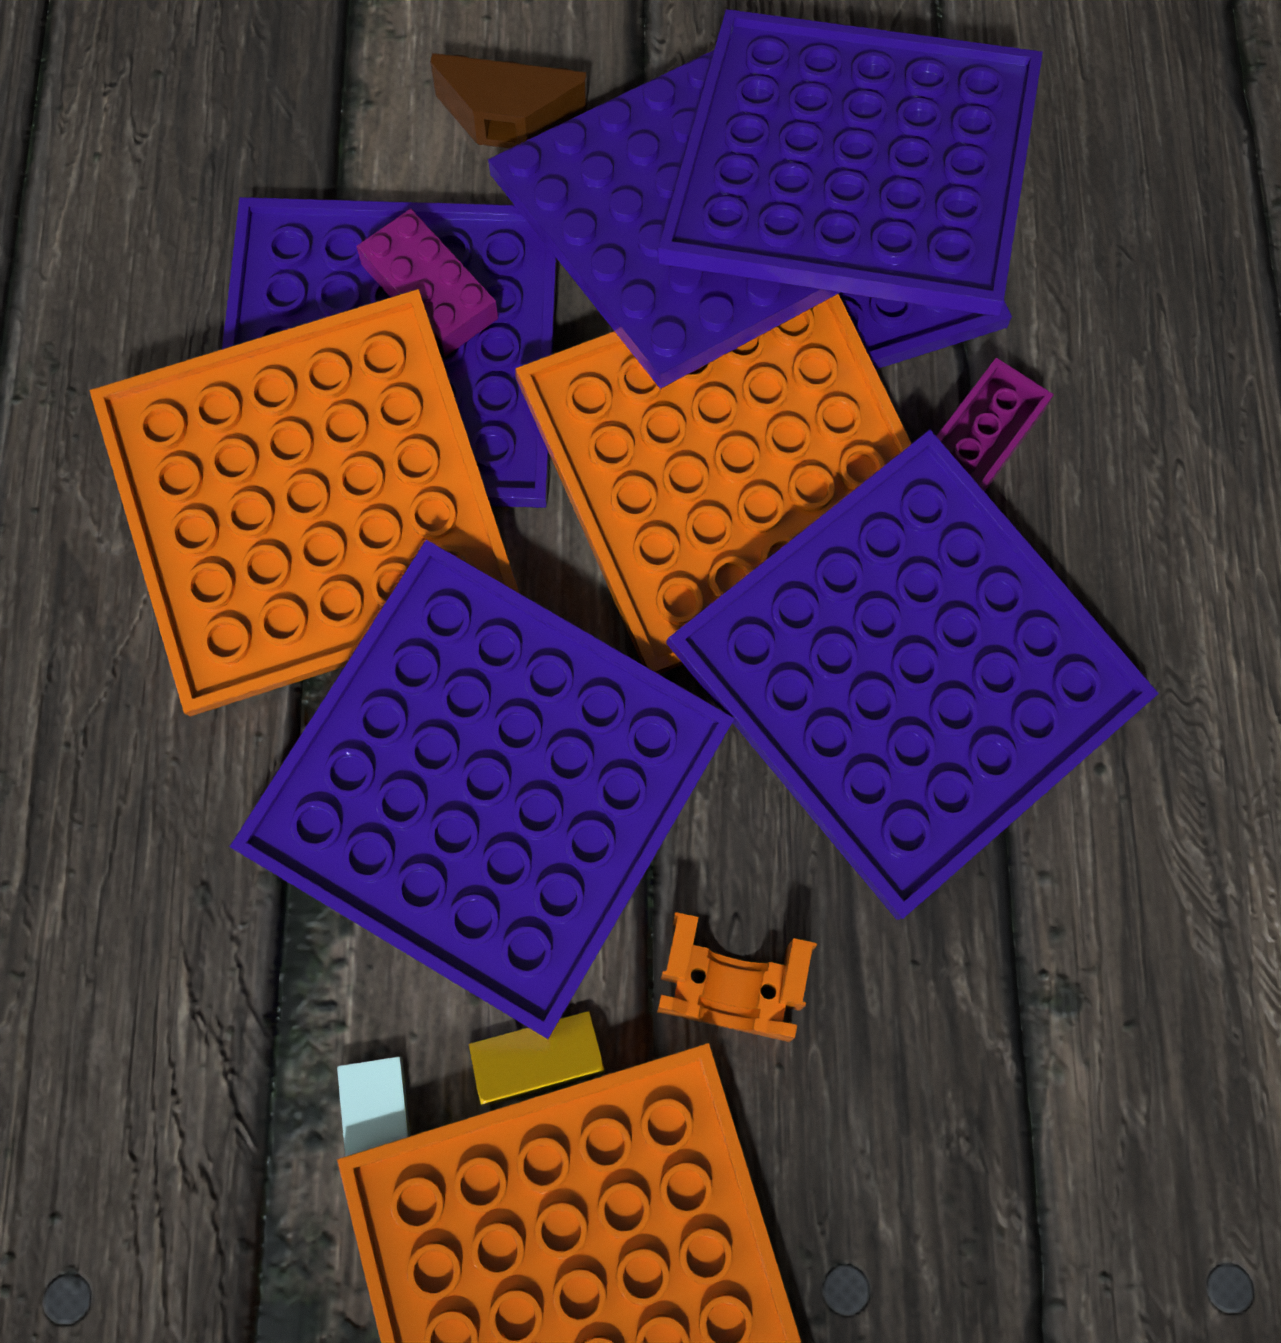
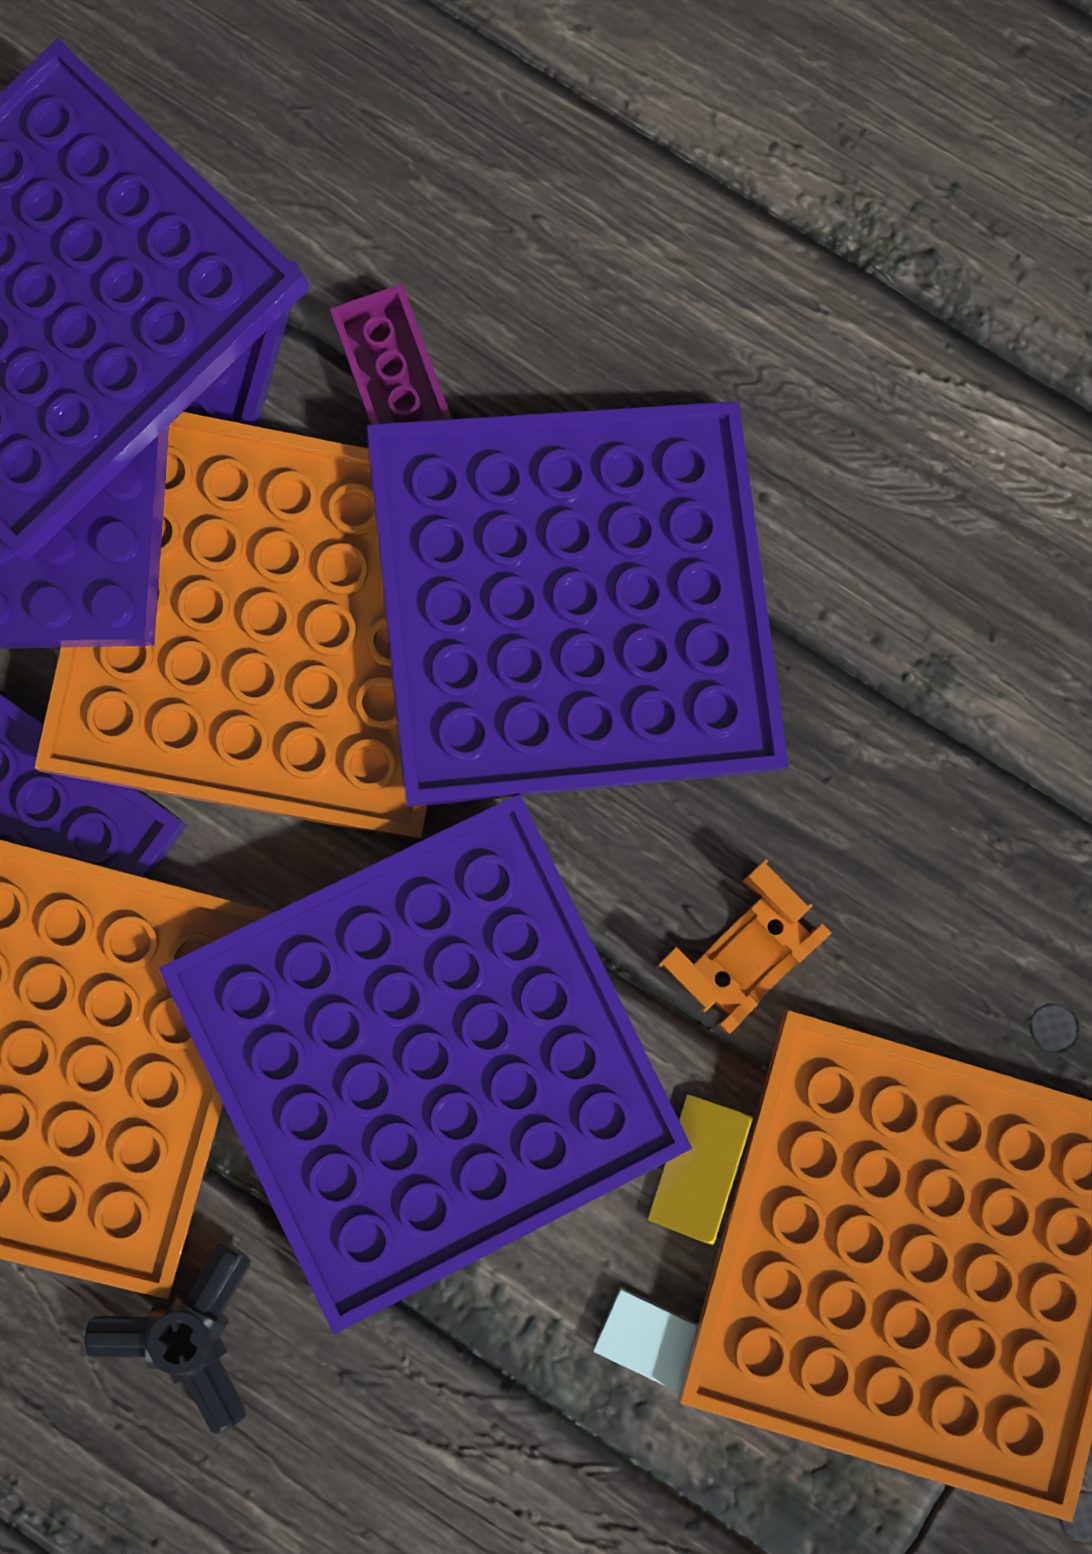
camera: 50 degrees left, 10 degrees up
(147, 729) = (158, 1337): none -> black bush

